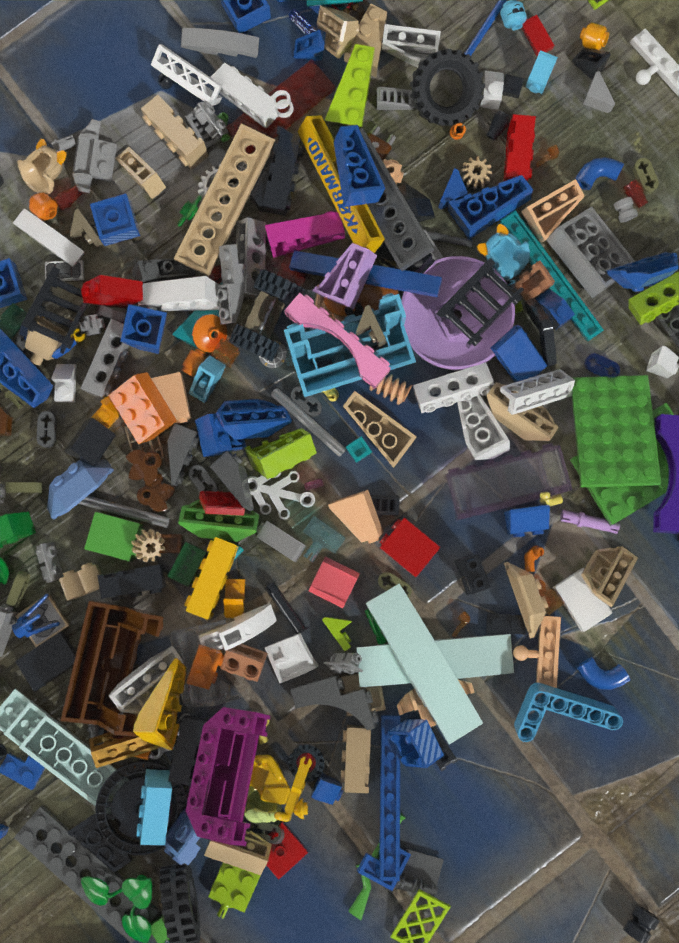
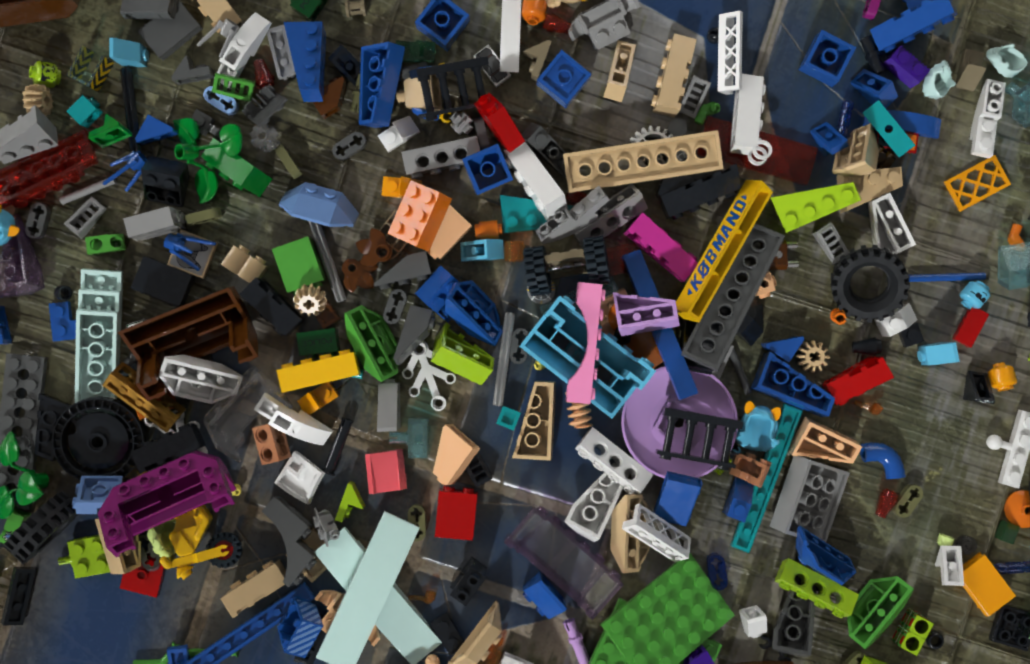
camera: 50 degrees right, 5 degrees up
(47, 553) = (248, 220): light grey hinge -> none
(90, 442) = (362, 191): black slope -> none
(155, 807) = (105, 454): medium azure wedge -> none
(159, 714) = (177, 407): yellow wedge -> none
(189, 210) = (613, 136): green plate -> none
(203, 329) = (521, 220): orange dish -> none
(204, 667) = (242, 415): orange bracket -> none
(206, 113) = (708, 92): light grey hinge -> none
(219, 41) = (779, 58): light grey slope -> none
(220, 503) = (384, 336): red plate -> none
(314, 484) = (454, 400): clear pink tile -> none
(327, 789) = (214, 580): blue slope -> none
(356, 168) = (743, 257): blue wedge -> none
(369, 322) = (618, 358): dark tan slope -> none
(376, 630) = (366, 539): green axle -> none
(532, 555) = (517, 617): orange arm -> none
(545, 327) = (716, 504): black beam -> none
(546, 499) = (571, 602): light yellow arm -> none
(599, 95) = (952, 414): light grey slope -> none
(625, 209) = (866, 503): light grey wheel -> none

